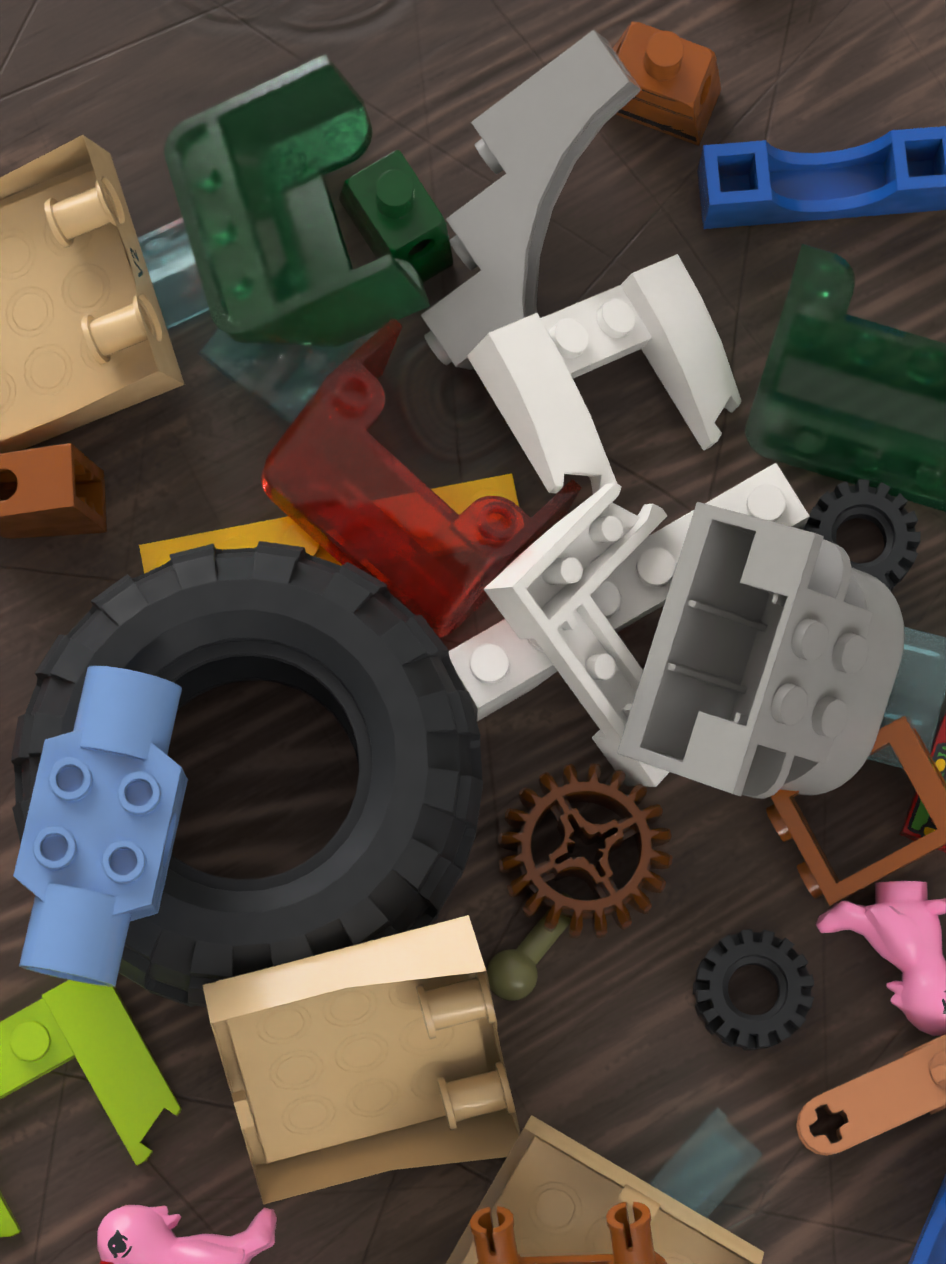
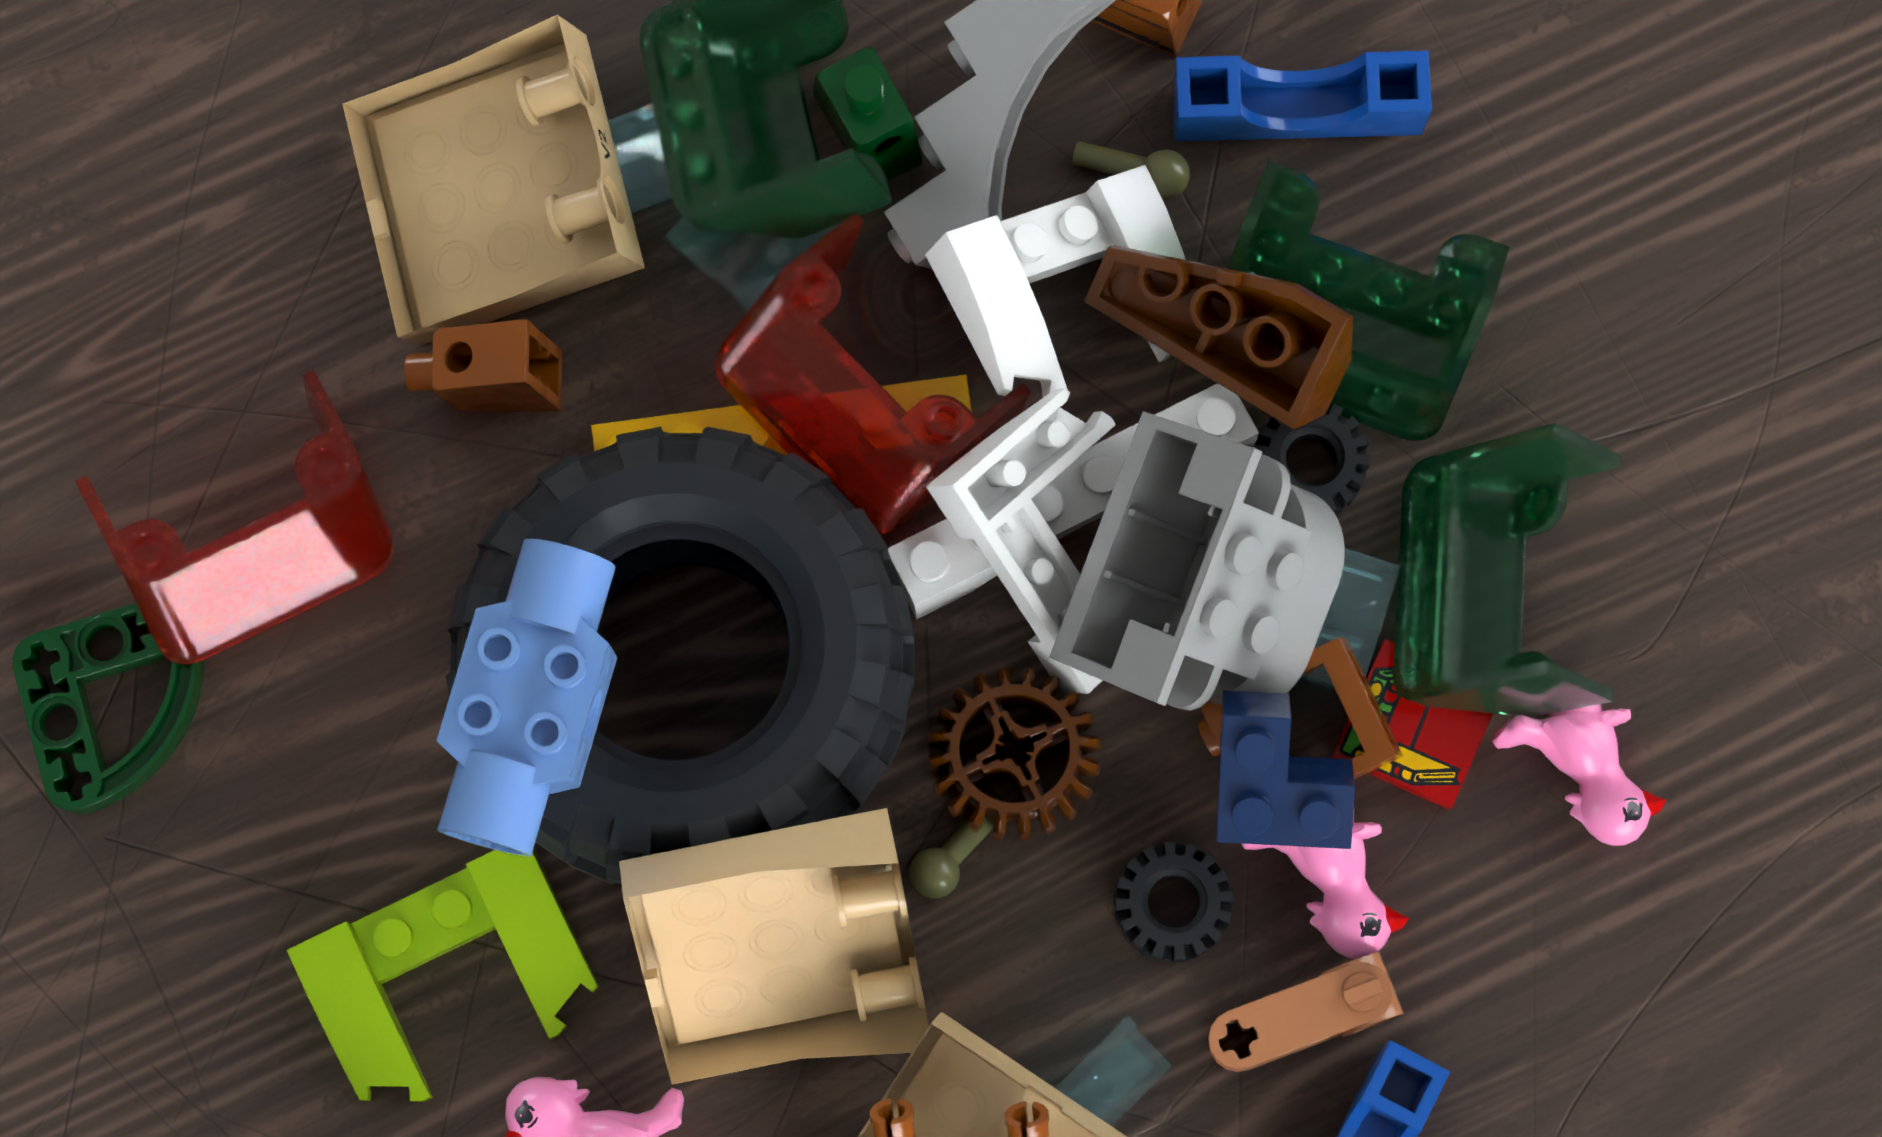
camera: 10 degrees right, 0 degrees up
(697, 254) = (1167, 167): none -> olive bar
(784, 413) = (1238, 328): none -> reddish brown wedge
(850, 878) = (1274, 796): none -> dark blue brick

